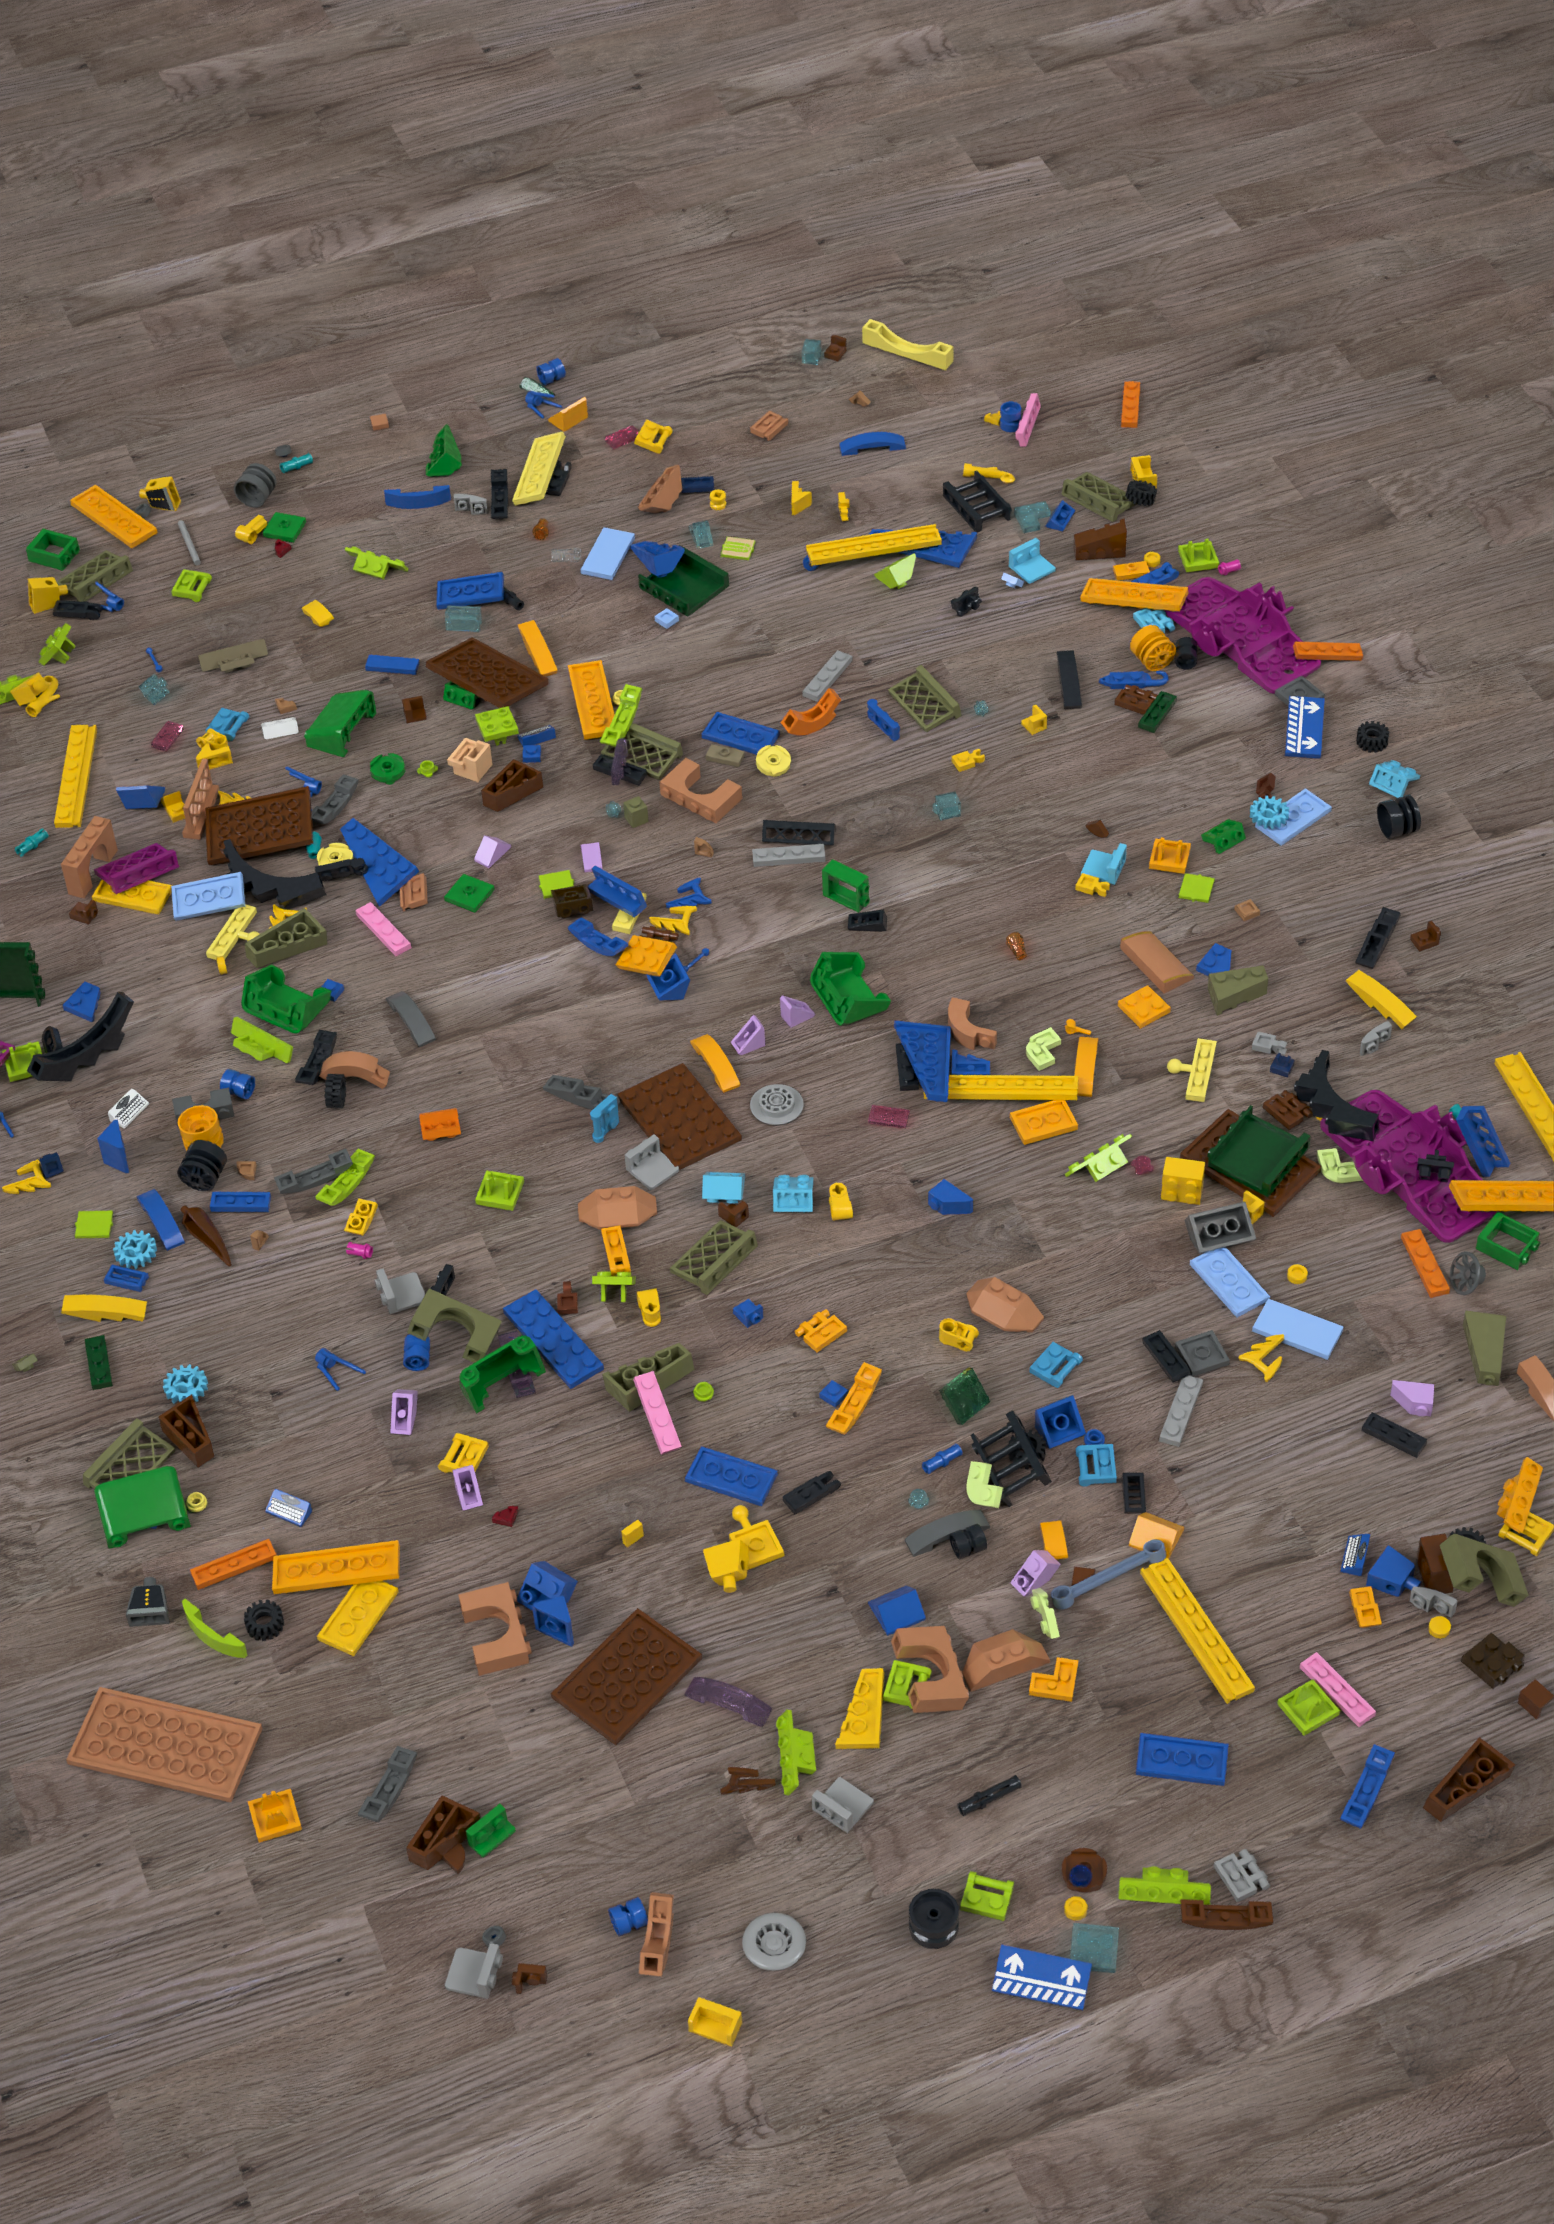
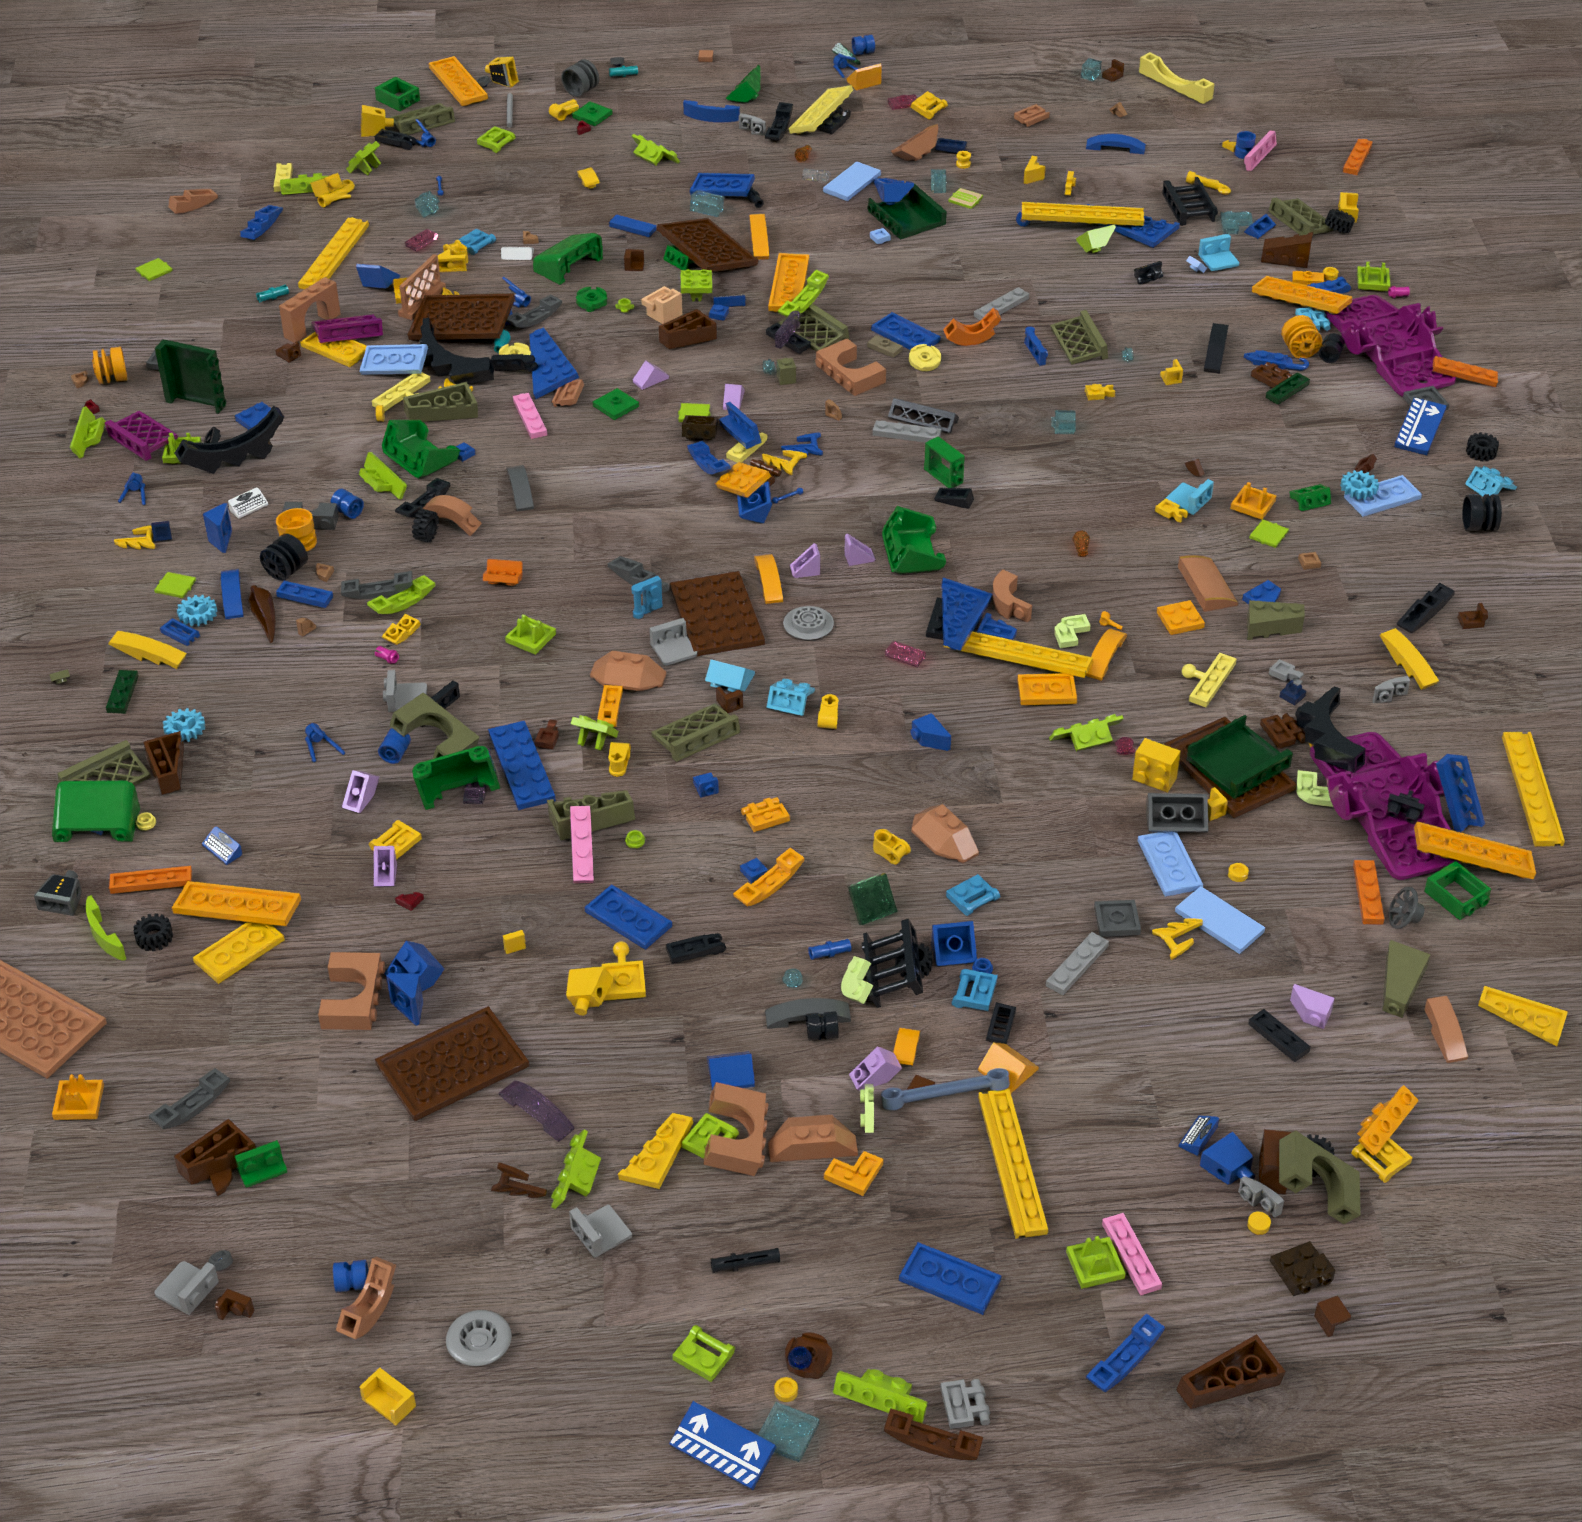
camera: 15 degrees right, 5 degrees down
(234, 656) = (500, 194): dark tan bracket -> none
(933, 1918) = (639, 1358): black wheel -> none
(1166, 1356) = (1080, 912): black plate -> none
(1365, 1607) = (1190, 1184): light orange slope -> none

